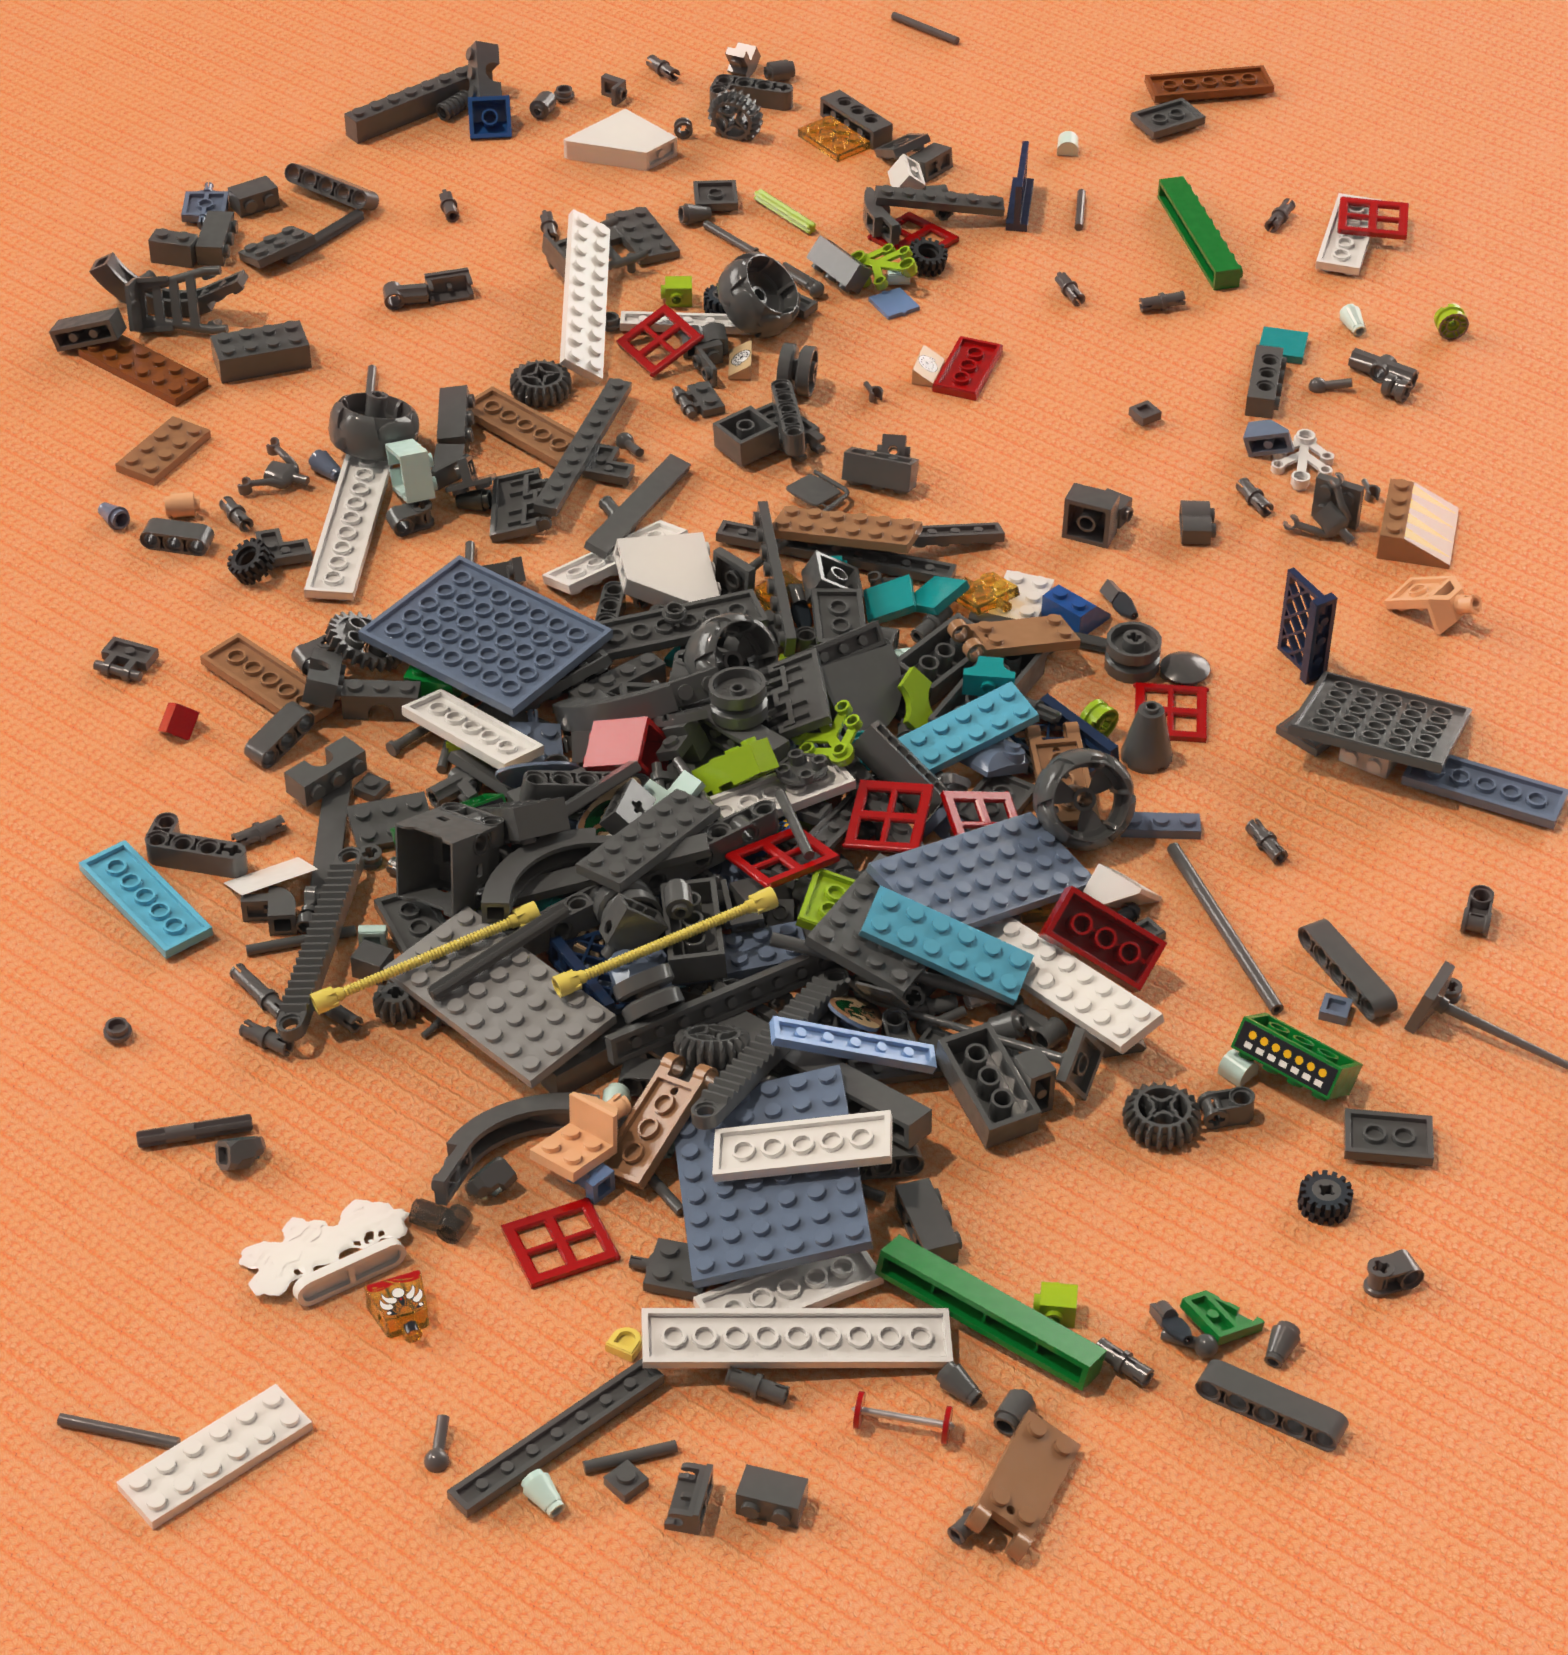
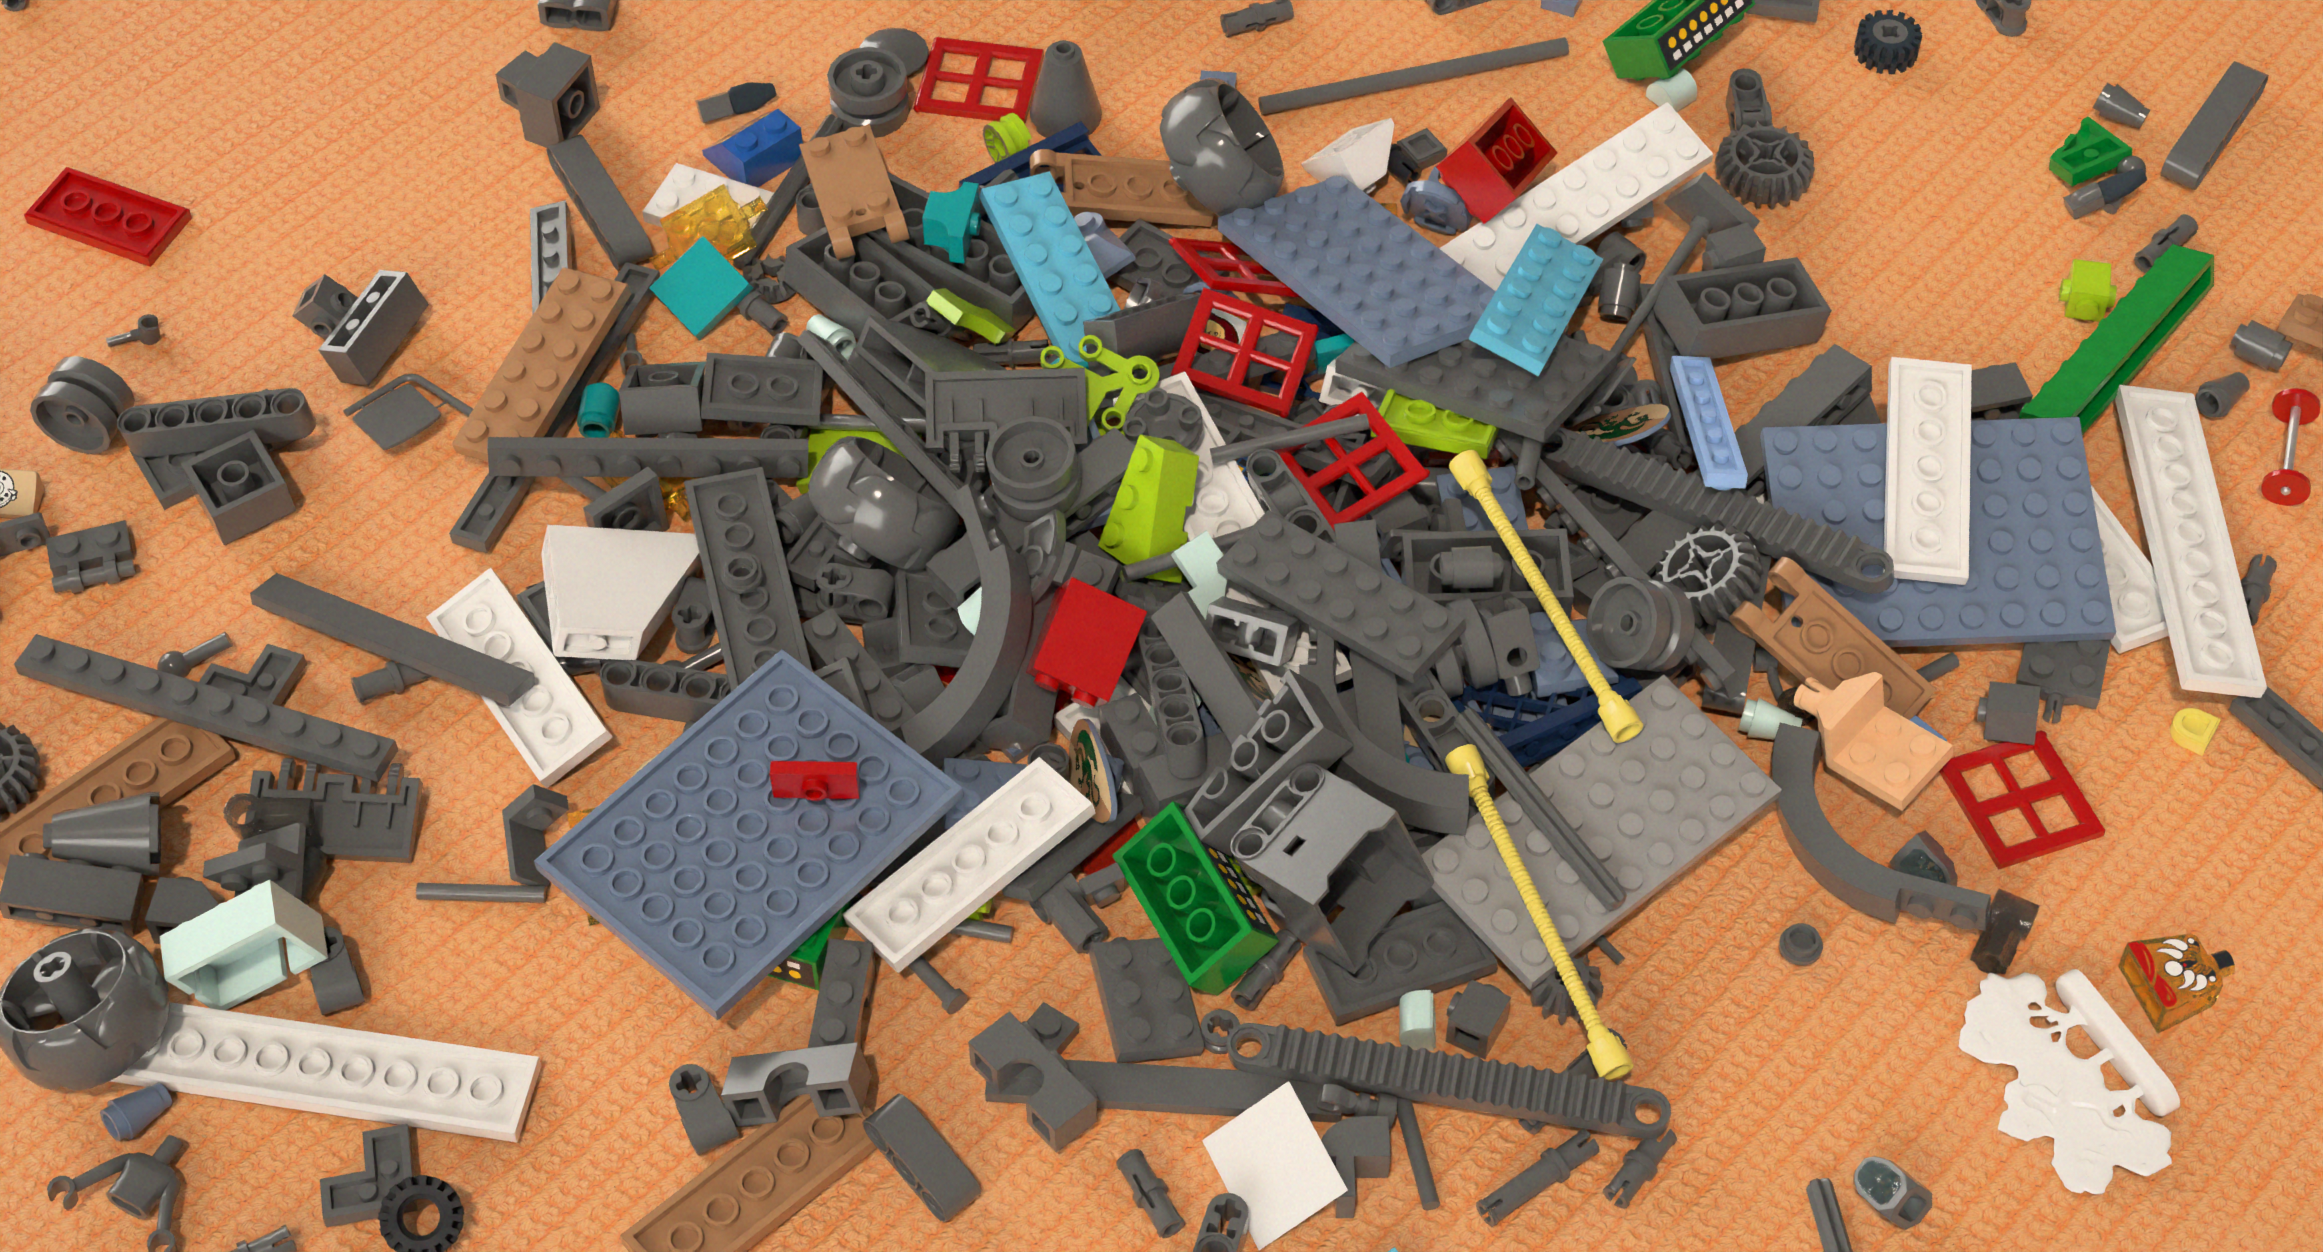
camera: 85 degrees left, 10 degrees up
(344, 637) = (683, 1037): dark grey gear -> none
(432, 1118) = (1801, 944): none -> dark grey plate
(490, 426) = (110, 834): none -> dark grey cone
(504, 474) = (270, 814): none -> clear smoke piece
(506, 643) = (815, 780): none -> red plate
(624, 1229) = (2010, 712): none -> dark grey brick
(890, 600) = (692, 332): teal tile -> none
(927, 367) = (95, 263): tan slope -> none
(1011, 549) = (599, 202): none -> dark grey beam
(1145, 413) = (297, 27): dark grey plate -> none

